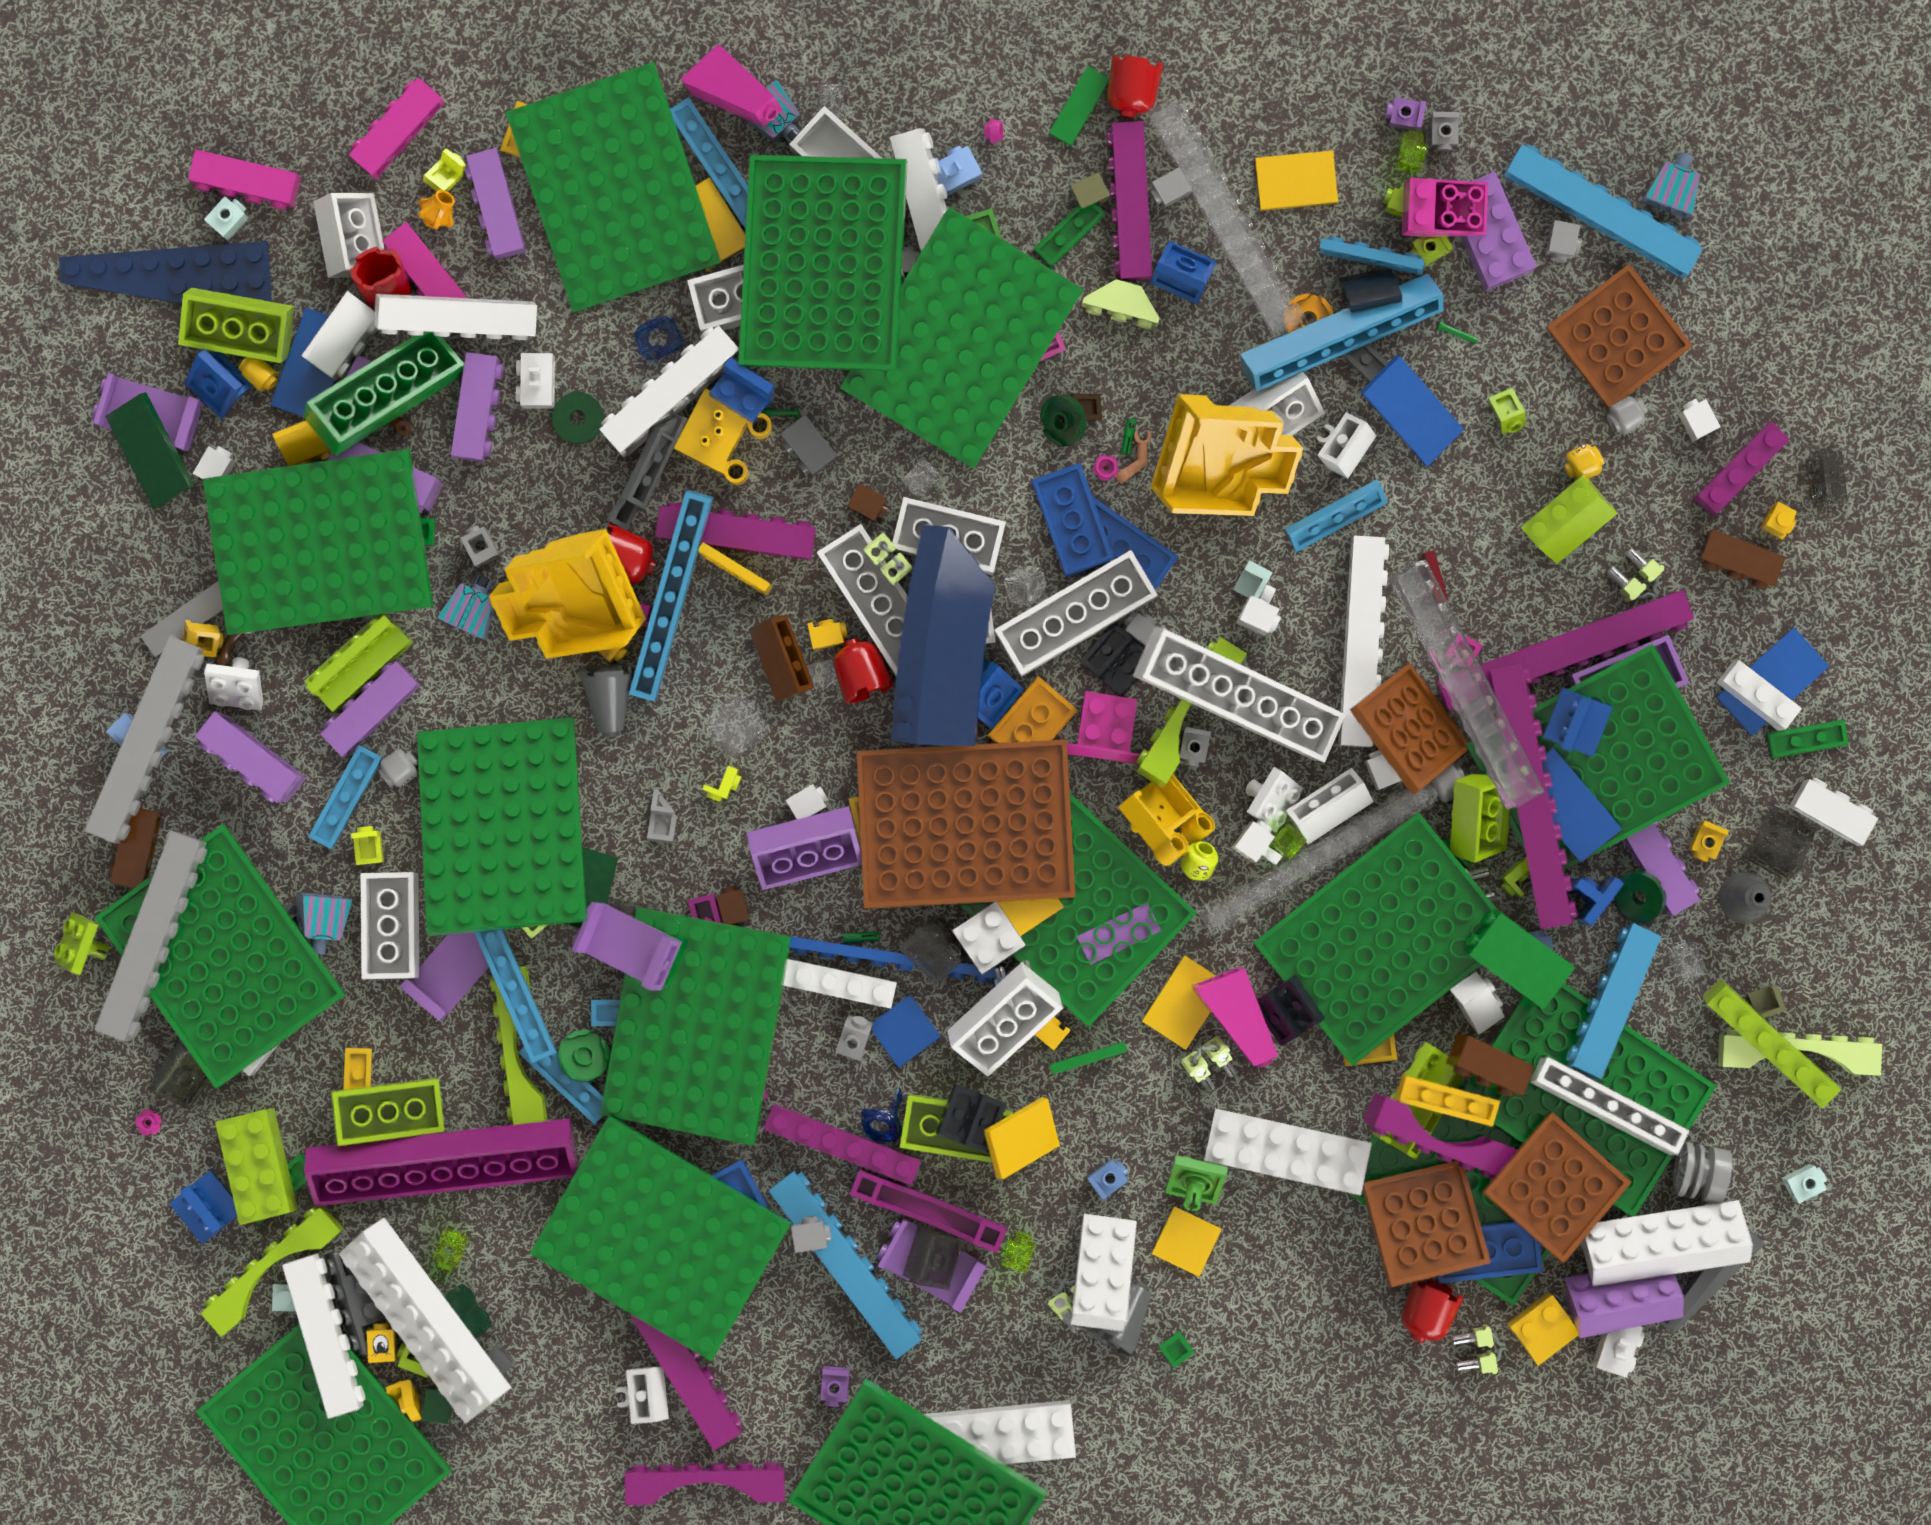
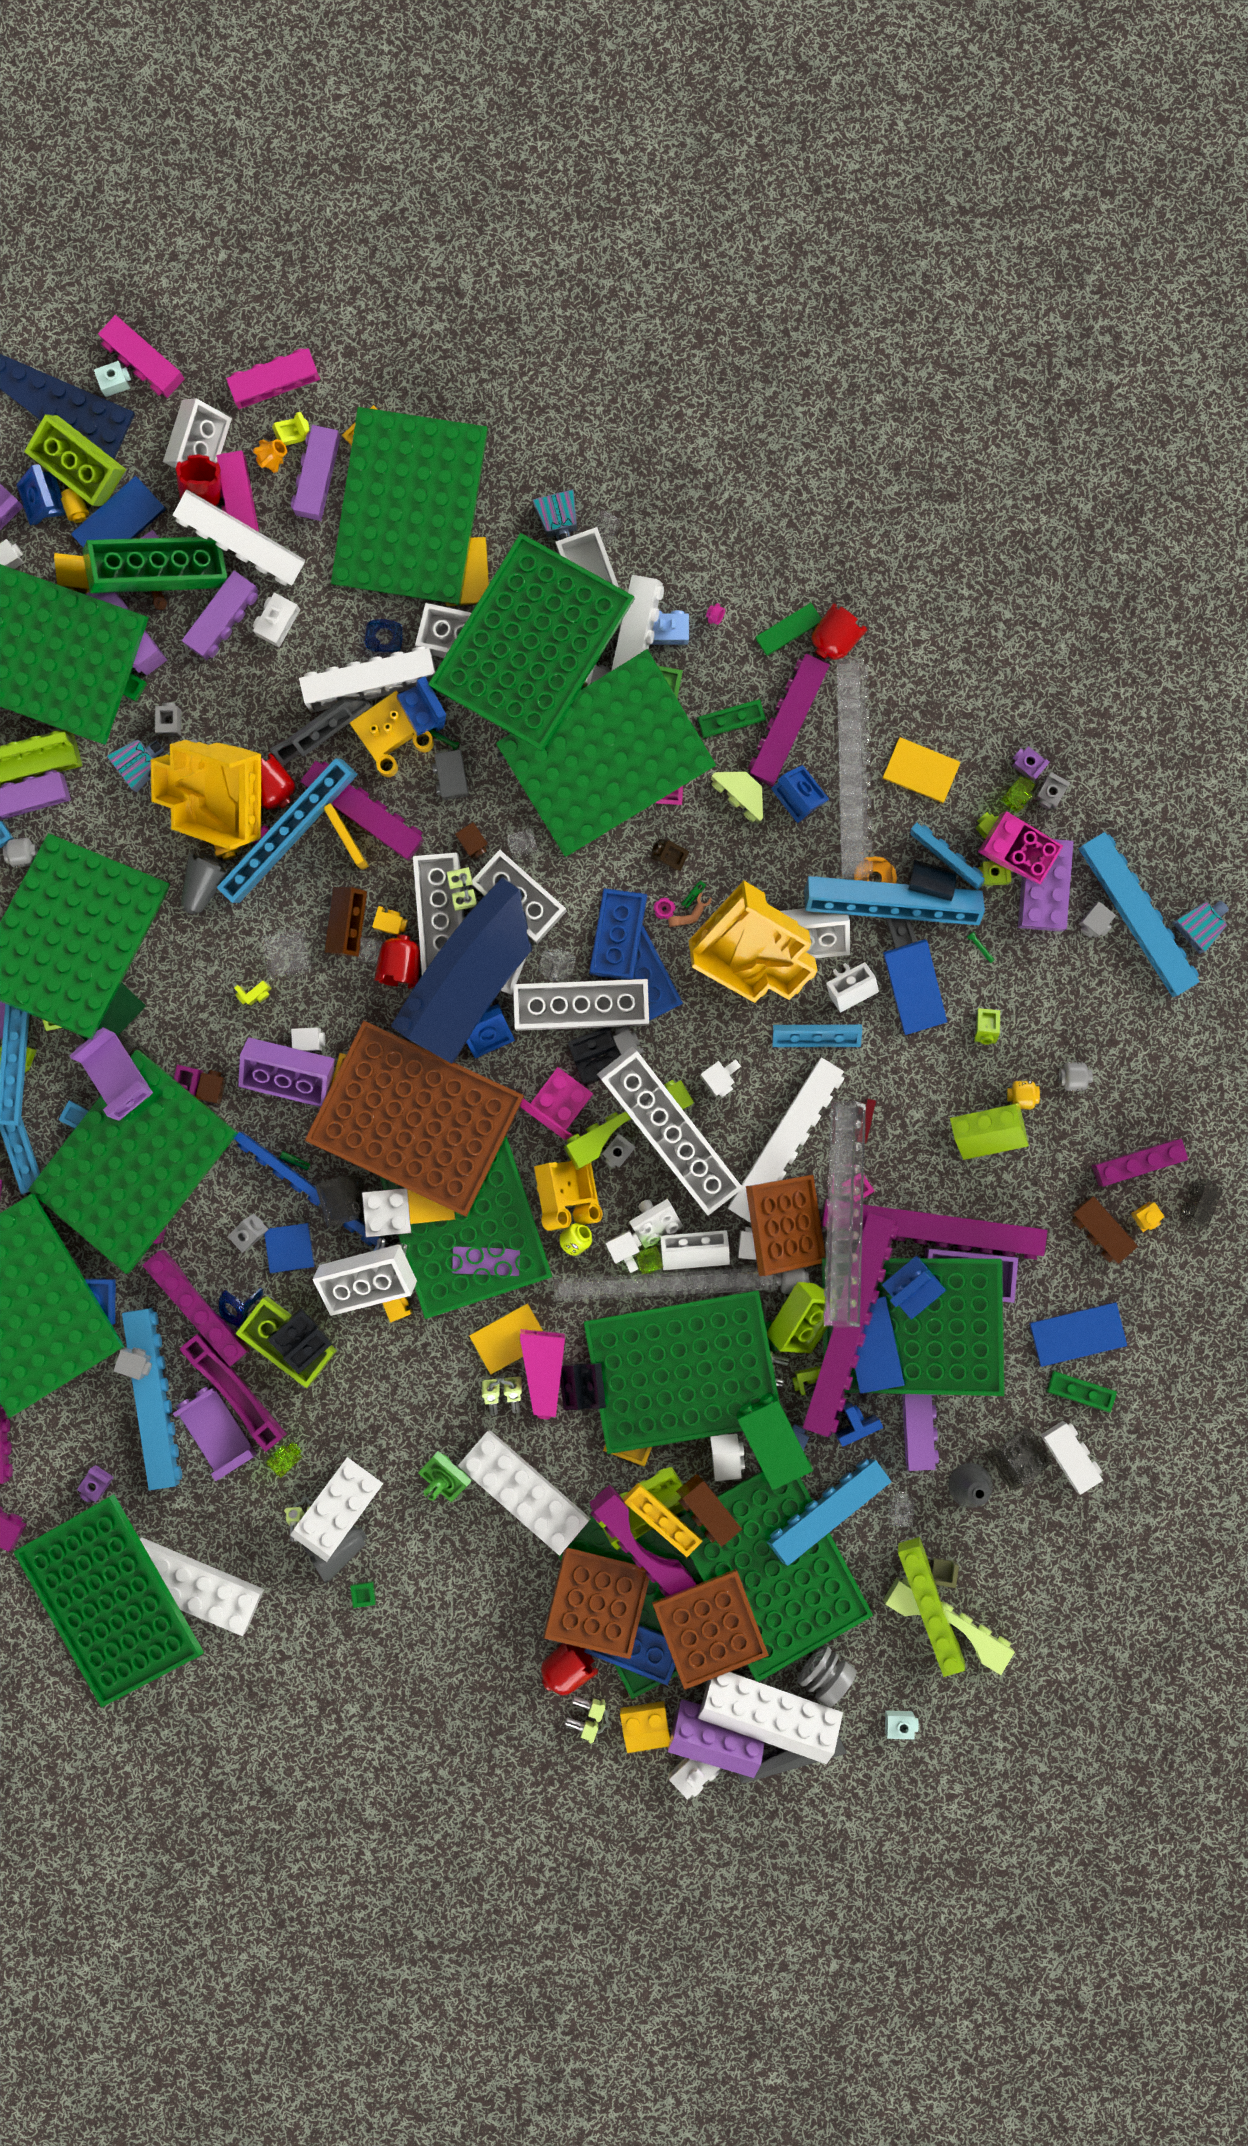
camera: 35 degrees right, 0 degrees up
(341, 337) = (145, 509): white slope -> none
(562, 417) = (283, 654): dark green tile -> none
(583, 1056) = (40, 1138): green tile -> none
(662, 820) = (194, 995): light grey slope -> none
(712, 157) = (495, 518): dark azure plate -> none
(731, 87) = (535, 477): dark pink slope -> none
(839, 983) = (258, 1186): white brick -> none
(932, 1258) = (217, 1429): clear smoke bracket -> none
(1021, 1138) = (330, 1375): yellow tile -> none
(1034, 716) = (511, 1065): light orange tile -> none
(1074, 420) = (659, 856): dark green tile -> none
(1088, 1057) = (413, 1341): green tile -> none
(1090, 191) = (762, 696): olive panel -> none
(1098, 1181) = (371, 1439): medium blue brick -> none
(1170, 188) = (823, 725): light grey brick -> none
(1186, 1241) = (414, 1517): yellow tile -> none
(1252, 580) = (728, 1051): light aqua panel -> none
(1609, 1106) = (782, 1589): white brick -> none
(1618, 336) = (1100, 1014): dark orange plate -> none
(1633, 588) = (1029, 1201): piece -> none
(1634, 908) = (882, 1447): dark green tile -> none
(1698, 419) = (1127, 1108): white brick -> none
(1704, 830) = (964, 1419): yellow brick -> none
(1759, 695) = (1062, 1340): white brick -> none

